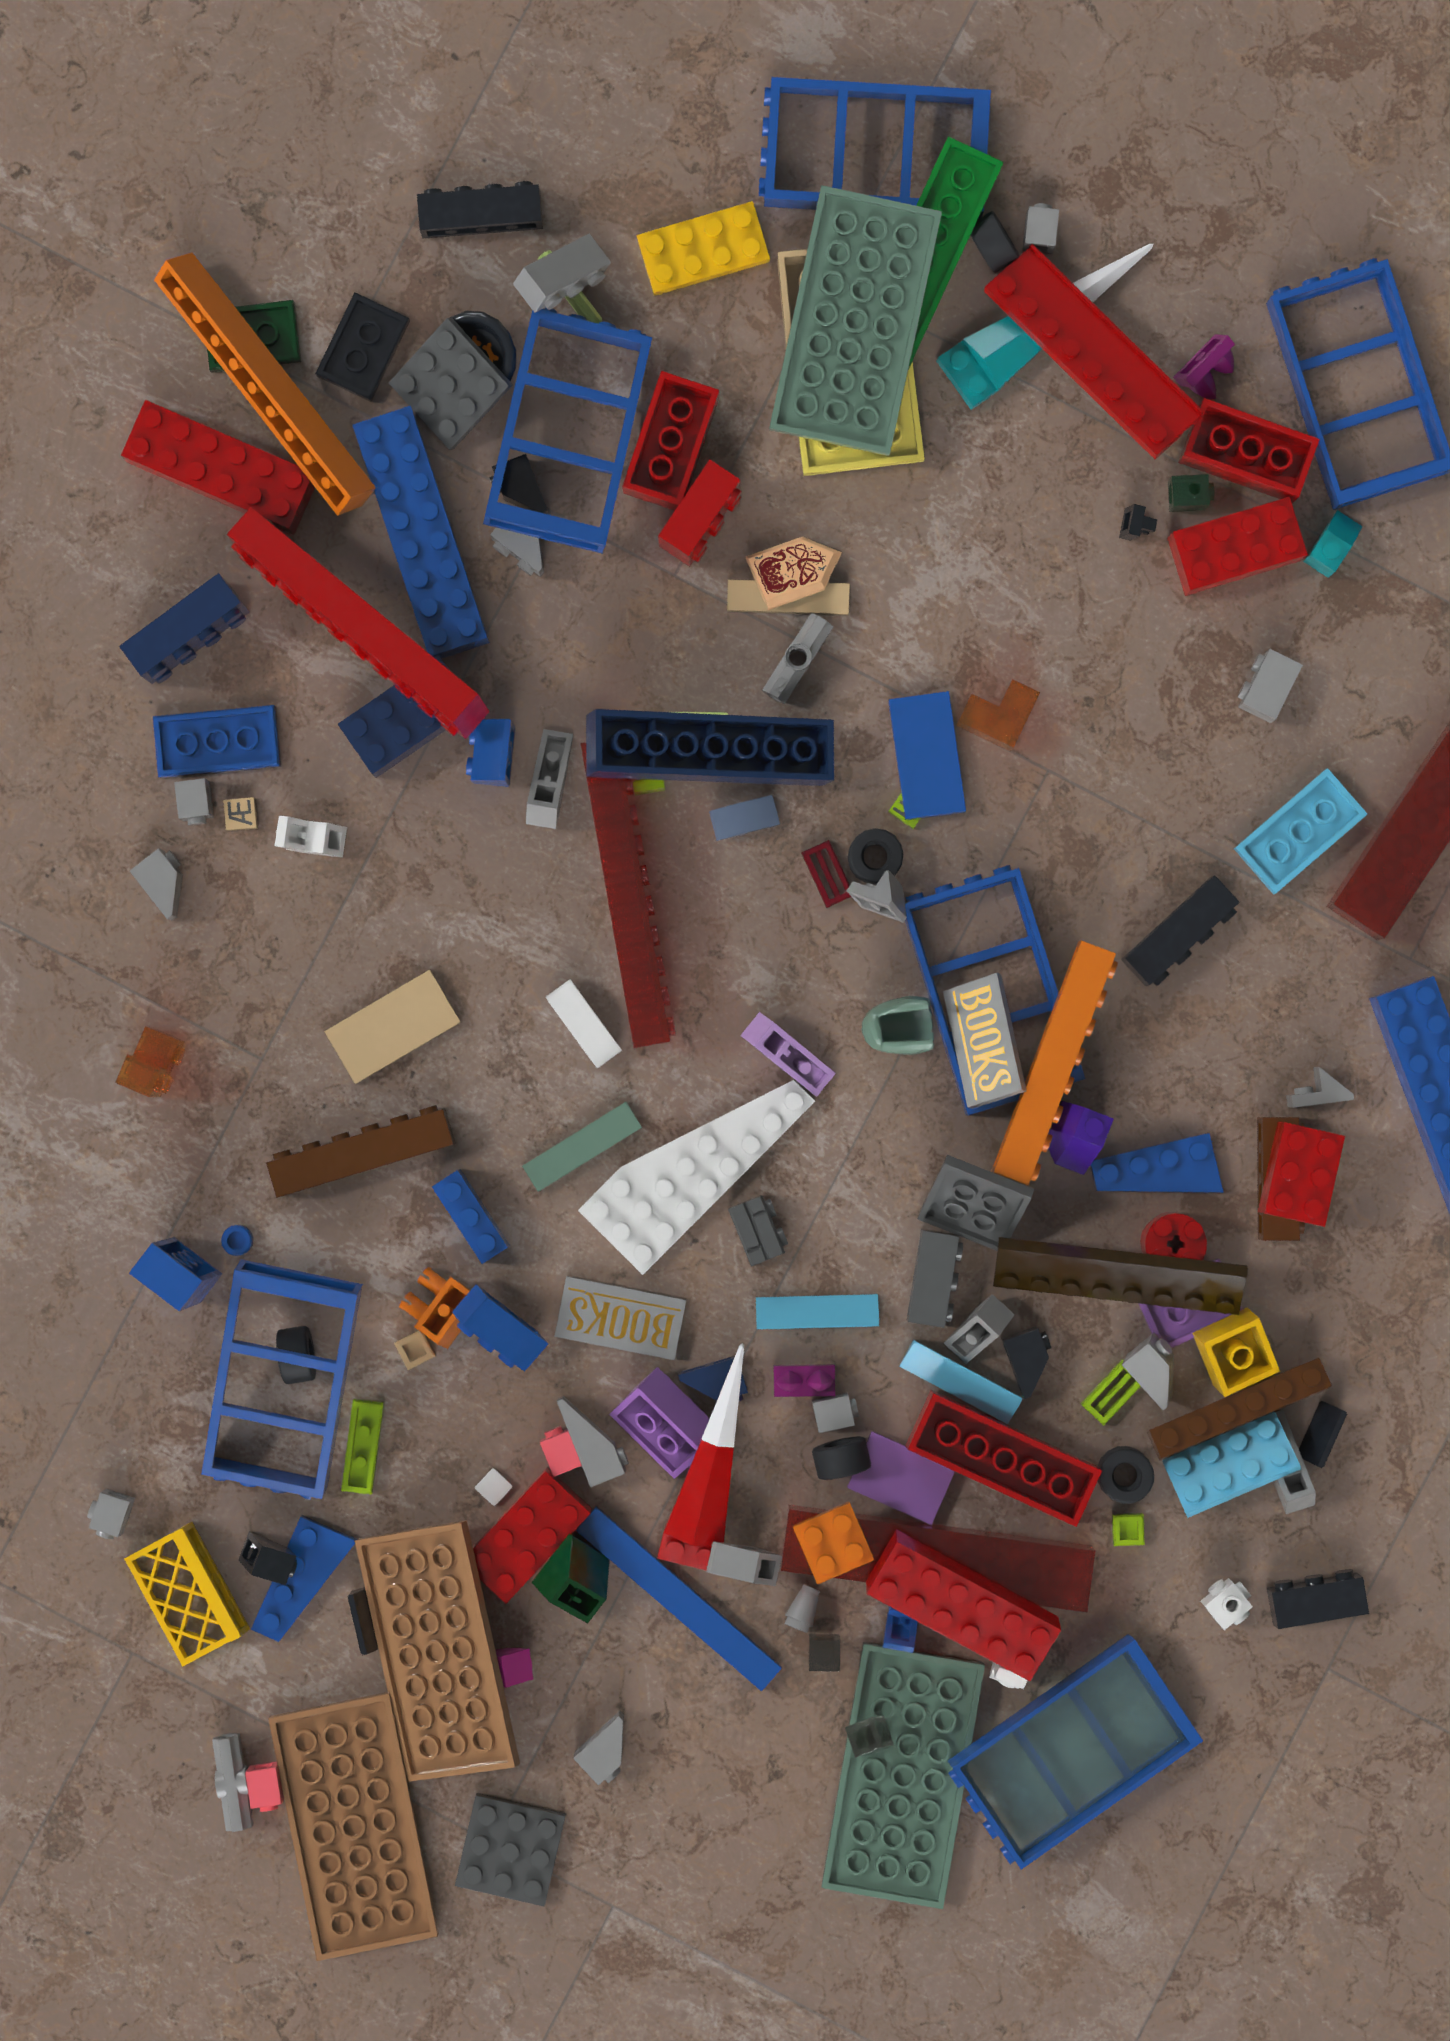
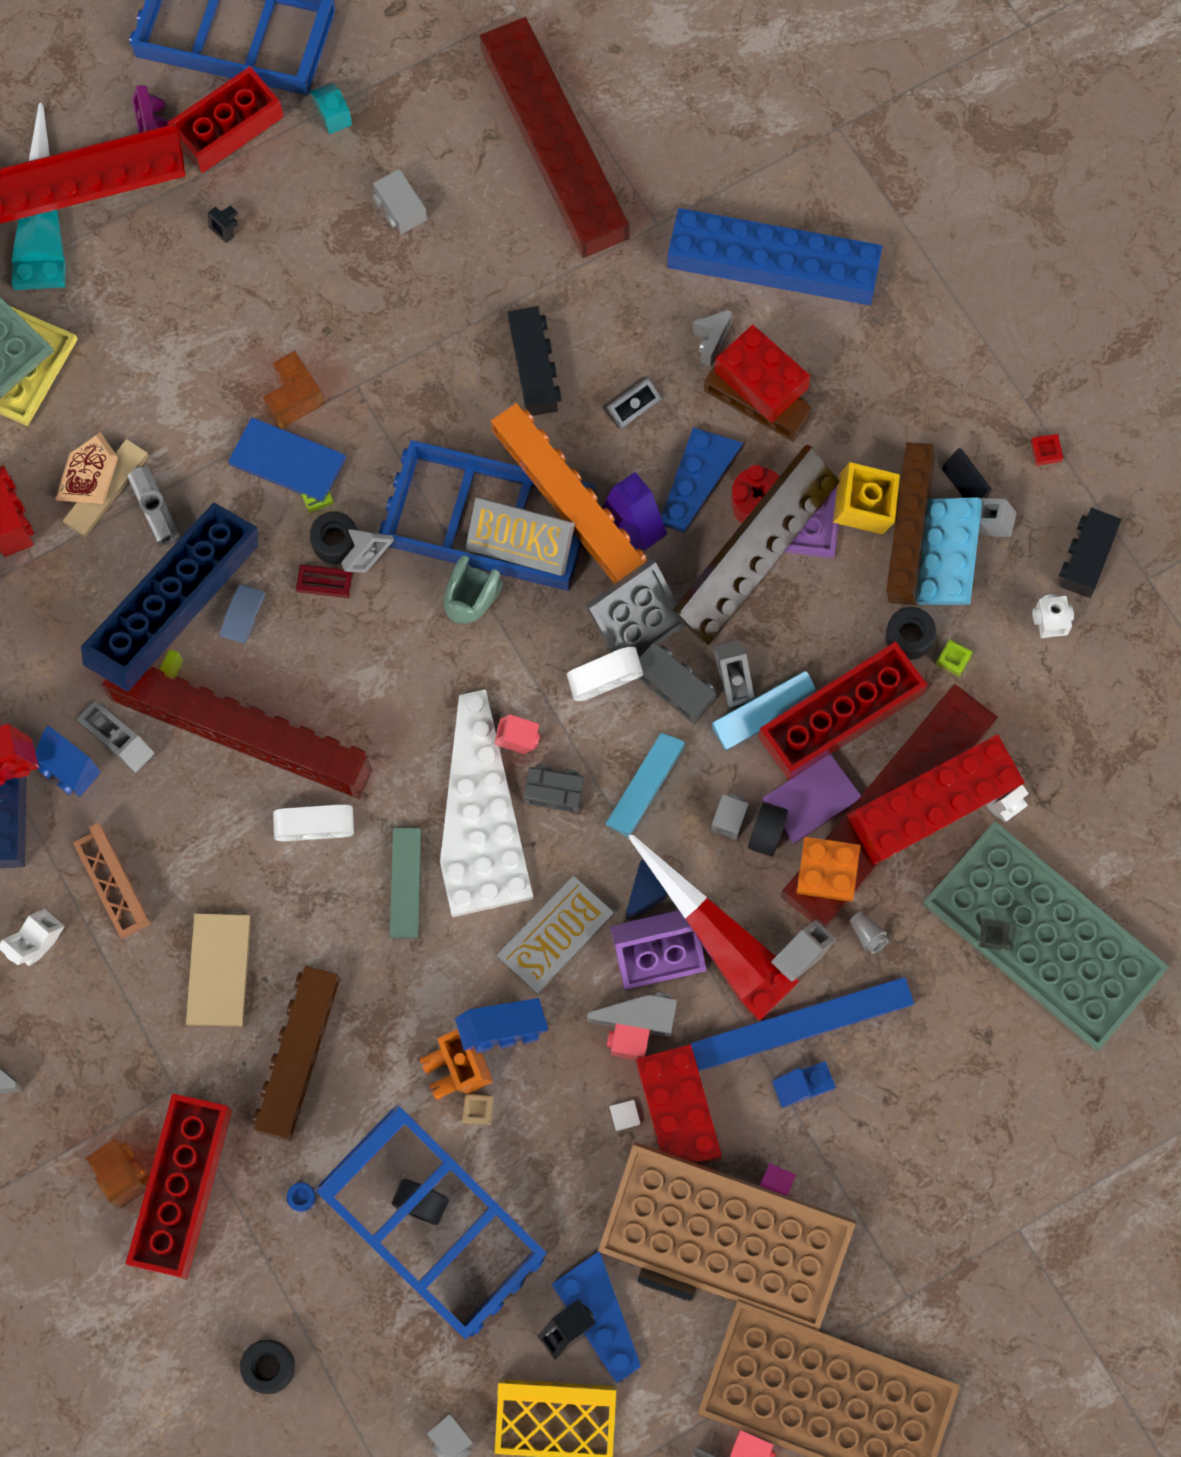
camera: 55 degrees left, 15 degrees down
(51, 1310) = (249, 1362): none -> black tyre
(174, 1127) = (179, 1186): none -> red brick
(175, 1273) = (290, 1248): blue brick -> none
(362, 1446) = (527, 1199): lime tile -> none
(421, 875) = (117, 873): none -> nougat fence
(470, 1216) = (402, 997): blue brick -> none
(510, 1849) = (924, 1283): dark grey plate -> none
(575, 1578) = (735, 1090): dark green slope -> none
(603, 1751) = (887, 1155): light grey slope -> none
(623, 1633) = (803, 1084): none -> blue slope
(787, 1054) = (435, 687): lavender slope -> none
(787, 1161) = (517, 734): none -> coral brick
(804, 1380) = (691, 826): magenta tile -> none
(824, 1652) = (912, 935): clear smoke brick -> none
(898, 1209) = (604, 674): none -> white beam
(899, 1631) = (923, 864): blue slope -> none
(1027, 1357) = (778, 651): black slope -> none
(1073, 1752) = (1102, 794): clear light blue window -> none
(1086, 1403) = (848, 629): lime tile -> none
(1153, 1368) = (841, 564): light grey slope -> none
(1190, 492) = (227, 176): clear green brick -> none
(1200, 1054) = (632, 402): none -> black slope
(1237, 546) = (286, 166): red brick -> none
(1300, 831) = (516, 241): medium azure plate -> none
(1402, 1495) = (1046, 449): none -> red plate

